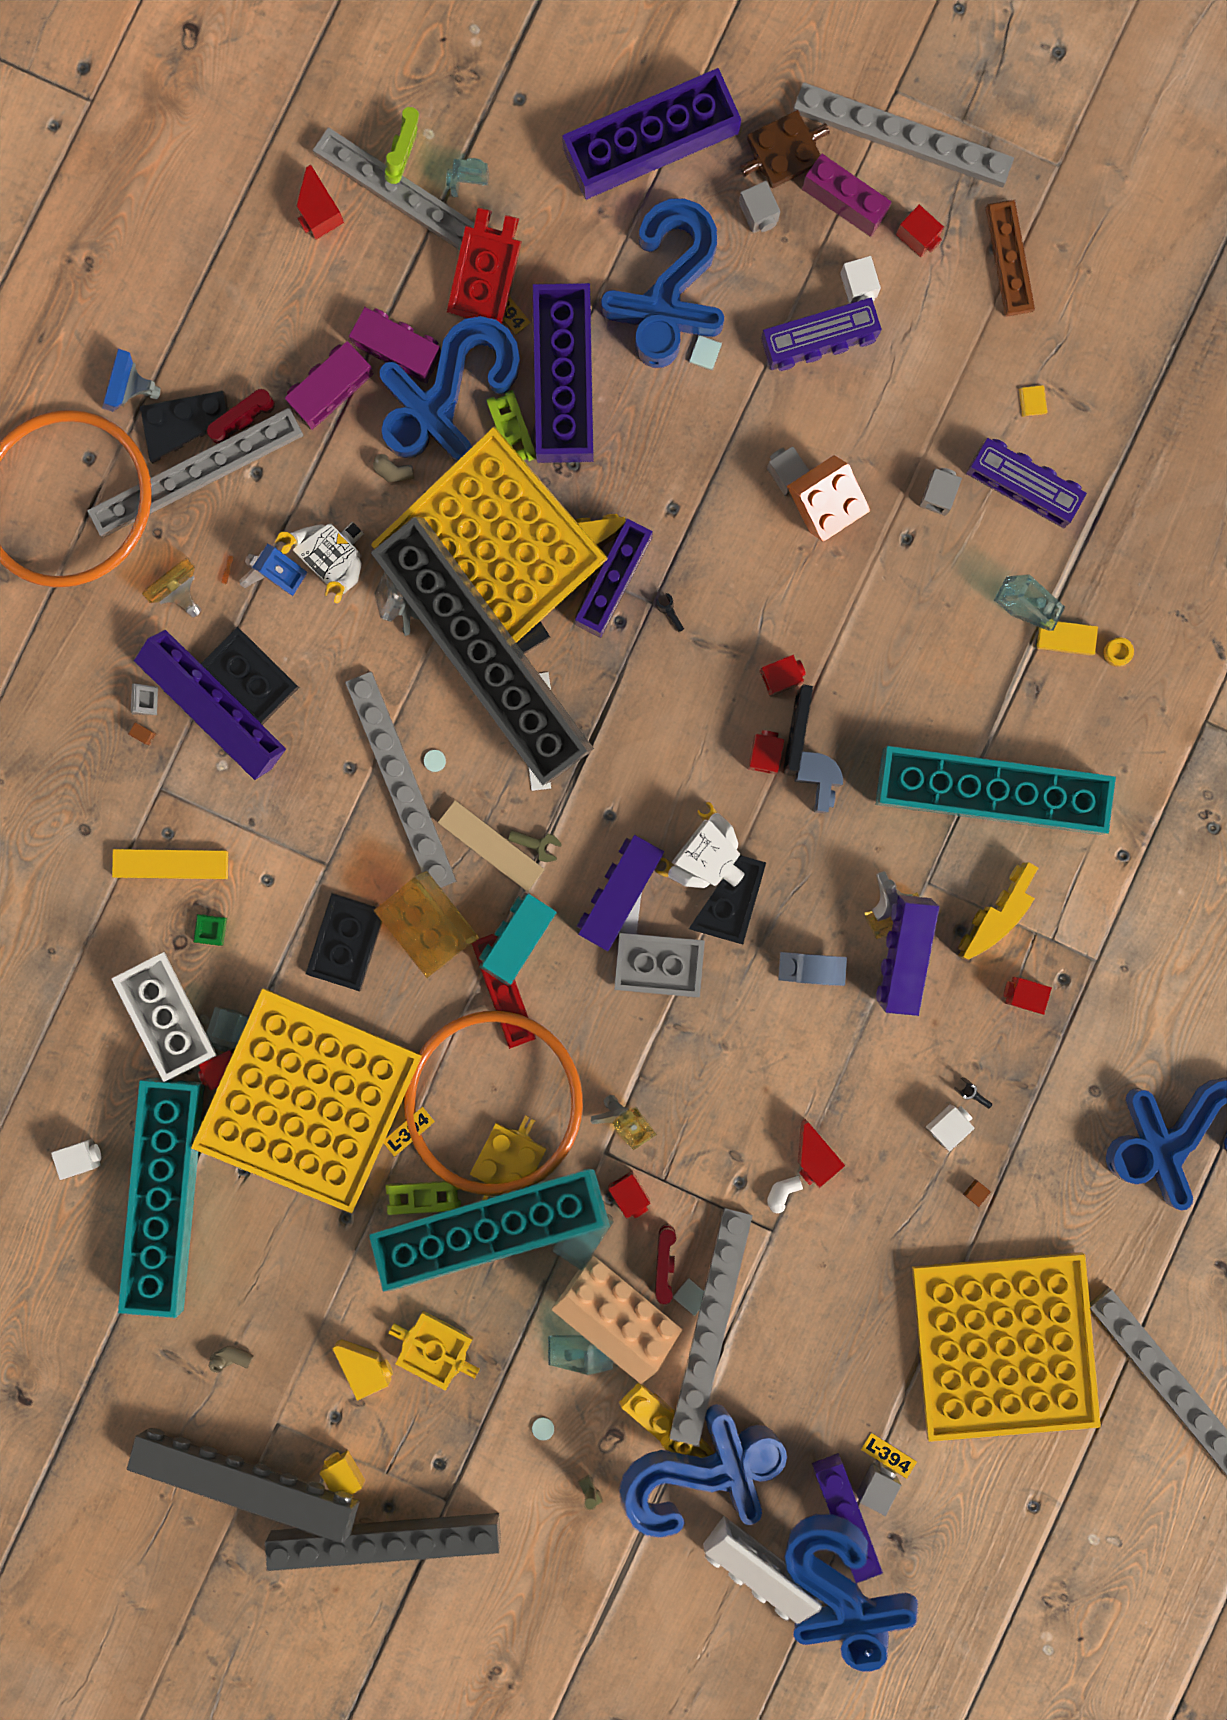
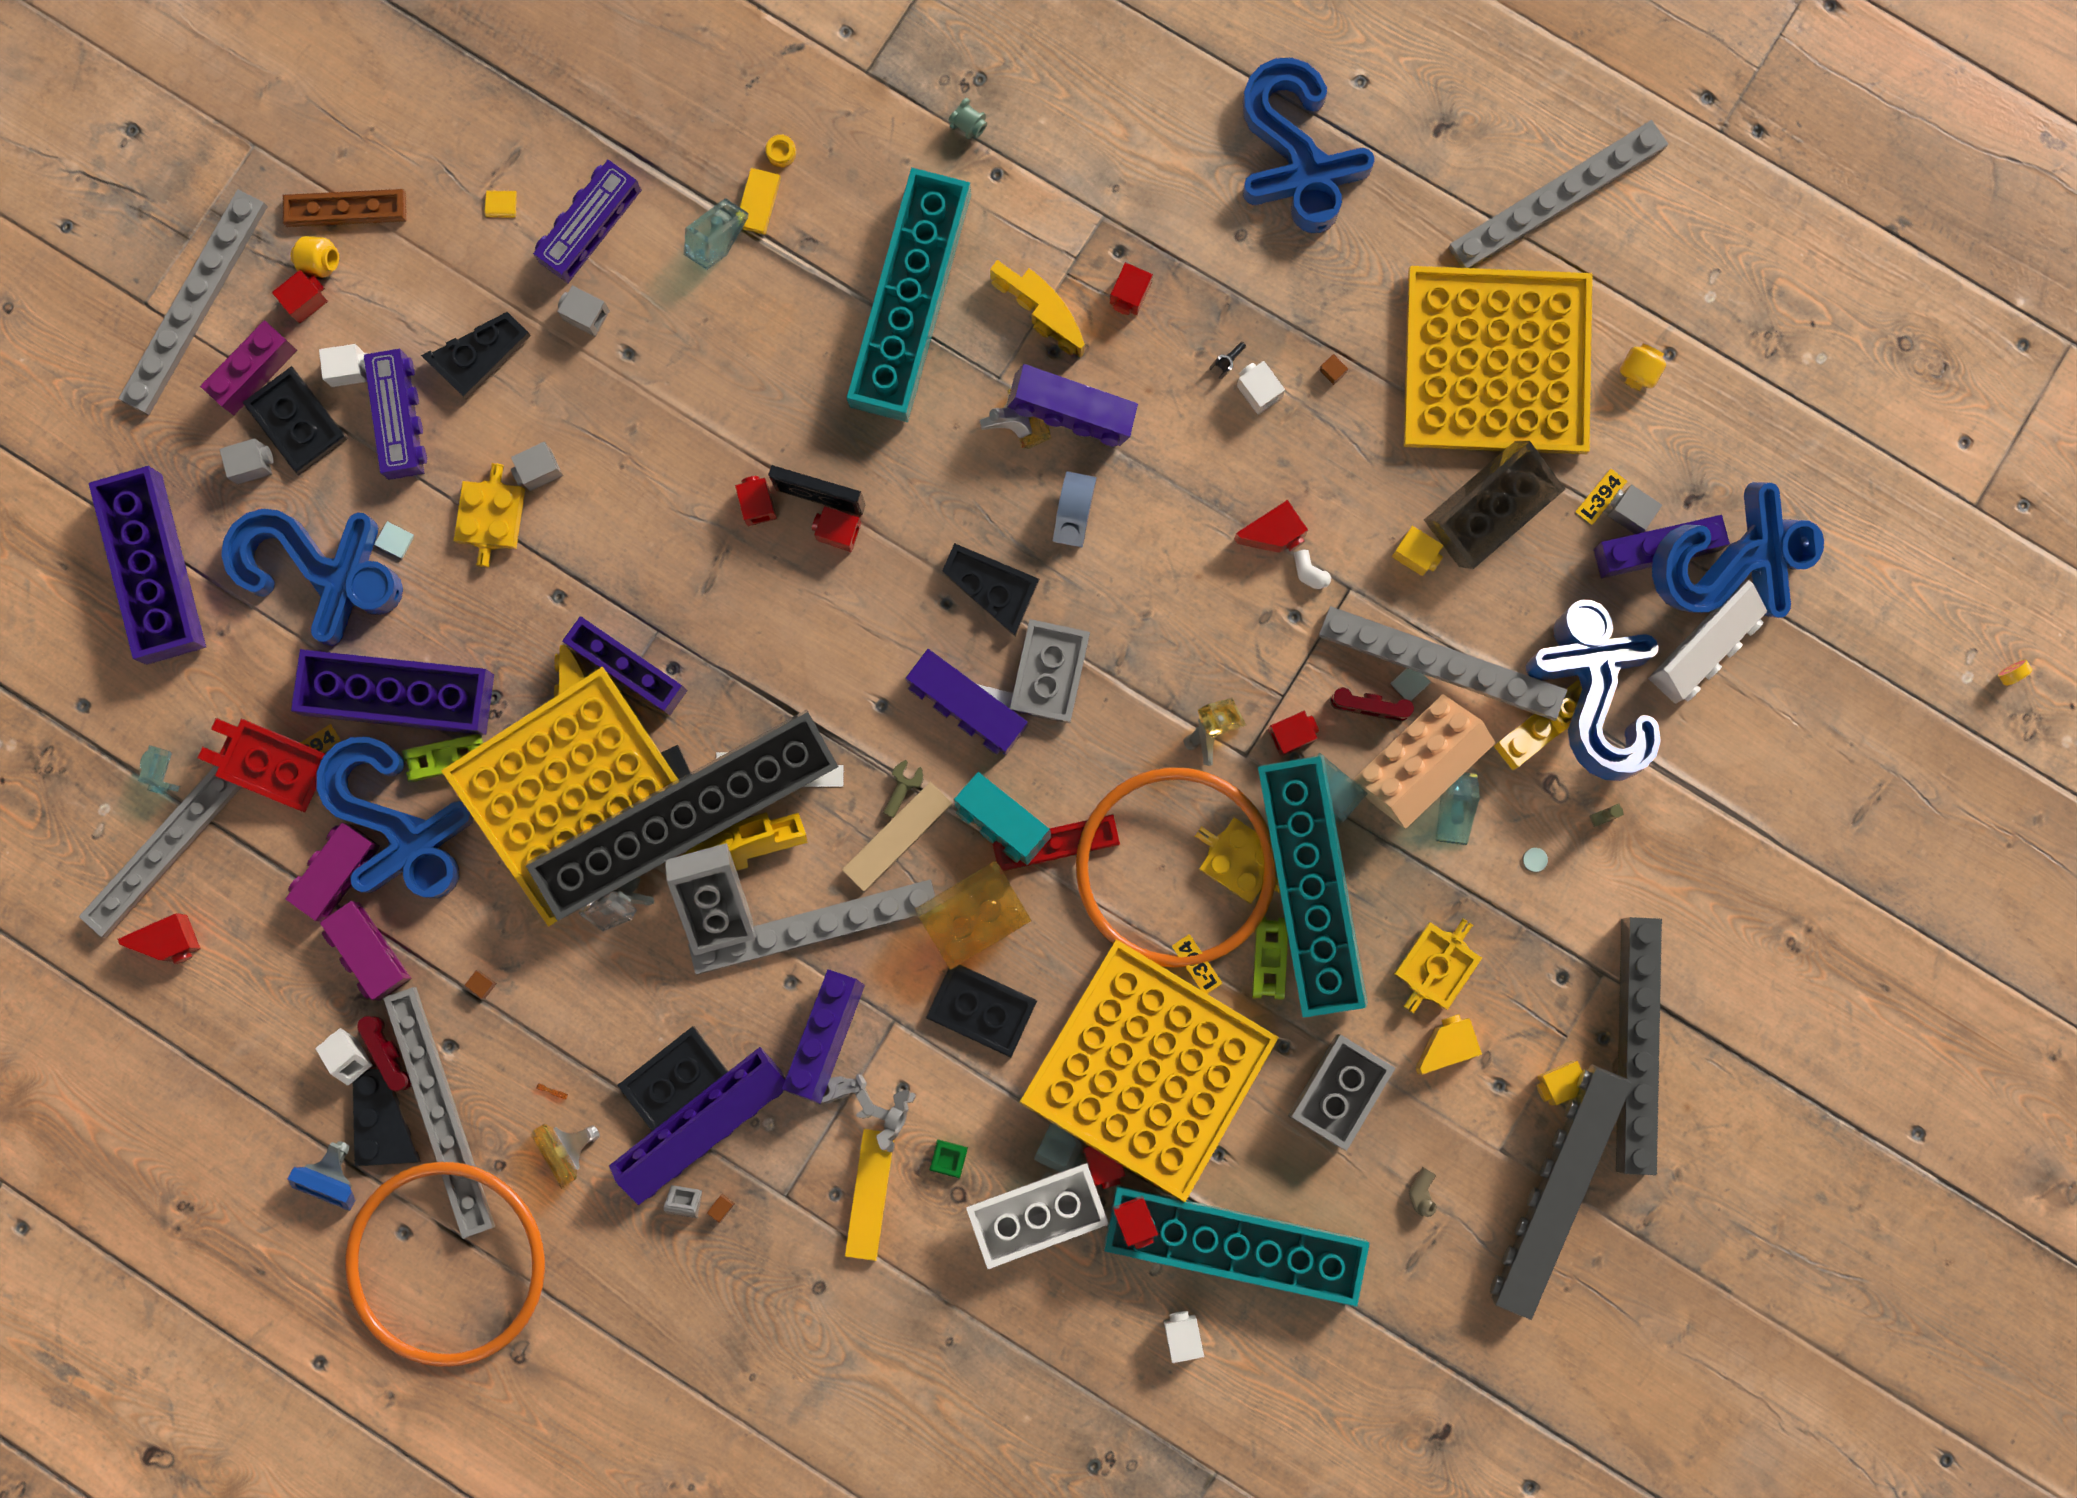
camera: 80 degrees left, 5 degrees down
(165, 1106) = (1136, 1222): none -> red brick
(232, 381) = (344, 1056): none -> white brick
(236, 877) = (893, 1119): none -> light grey piece
(276, 568) = (555, 1035): blue piece -> none
(300, 804) = (823, 1036): none -> dark purple brick
(308, 1276) = (1341, 1092): none -> light grey brick
(313, 492) = (480, 984): none -> dark orange piece
(327, 554) = (552, 974): torso -> none
(389, 471) = (471, 896): dark tan arm -> none
(402, 146) = (113, 836): lime plate -> none
(409, 685) = (709, 899): none -> light grey brick
(434, 760) = (796, 887): light aqua piece -> none
(467, 710) = (757, 837): none -> yellow slope
(670, 612) = (670, 612): black hand -> none
(706, 855) = (937, 604): white torso -> none
(738, 435) = (489, 515): none -> yellow plate
(784, 149) = (187, 428): reddish brown plate -> none
(804, 245) = (295, 420): none -> black tile
(813, 1292) = (1418, 551): none -> yellow brick
(824, 772) = (868, 469): sand blue brick -> none
(828, 498) = (572, 426): brick -> none
(866, 1359) = (1494, 504): none -> clear smoke brick
(887, 401) = (476, 356): none -> black wing
(959, 238) = (315, 256): none -> yellow head
(1016, 1484) = (1643, 367): none -> yellow head
(1171, 823) = (968, 120): none -> sand green brick

